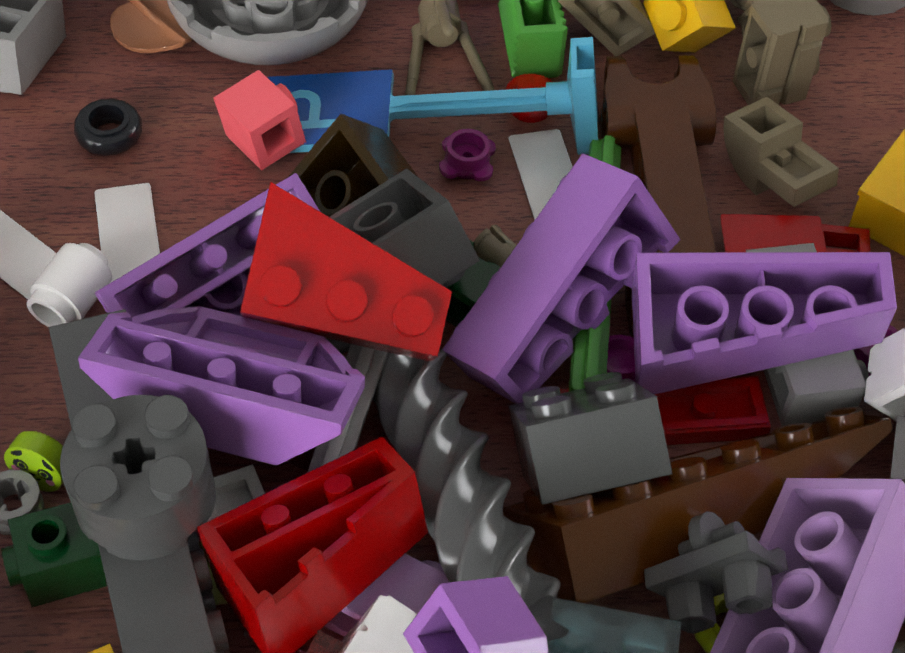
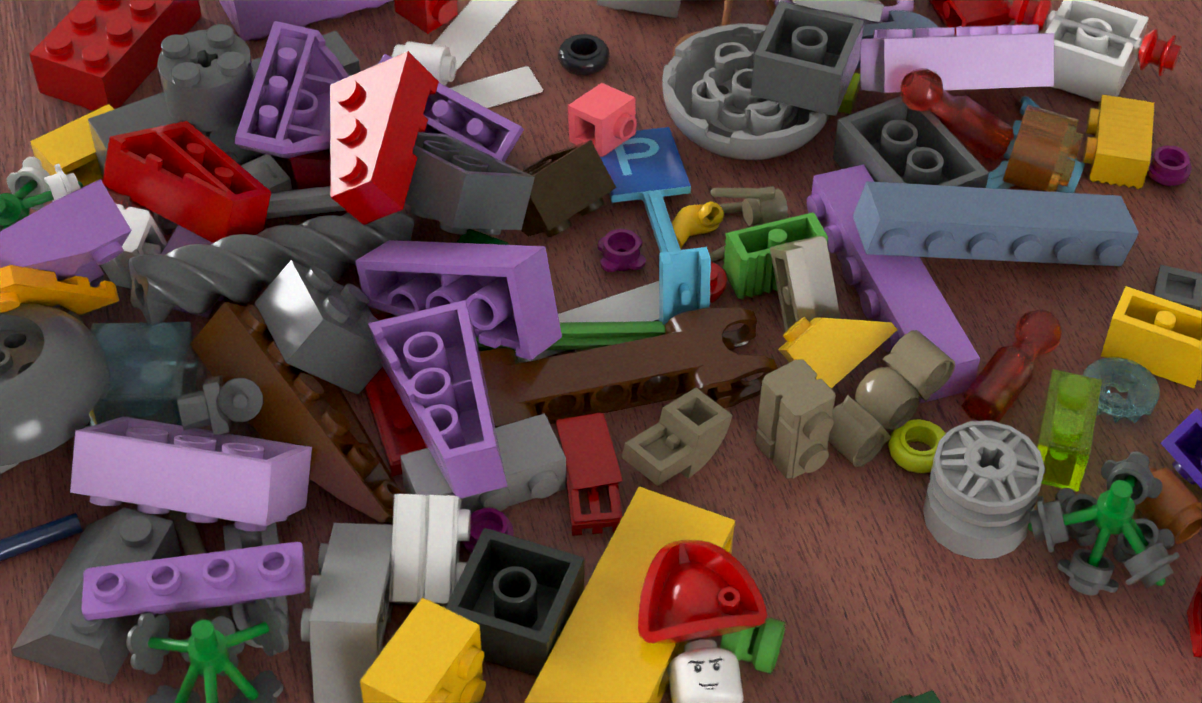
camera: 80 degrees right, 5 degrees down
(434, 79) = (697, 220): none -> yellow arm

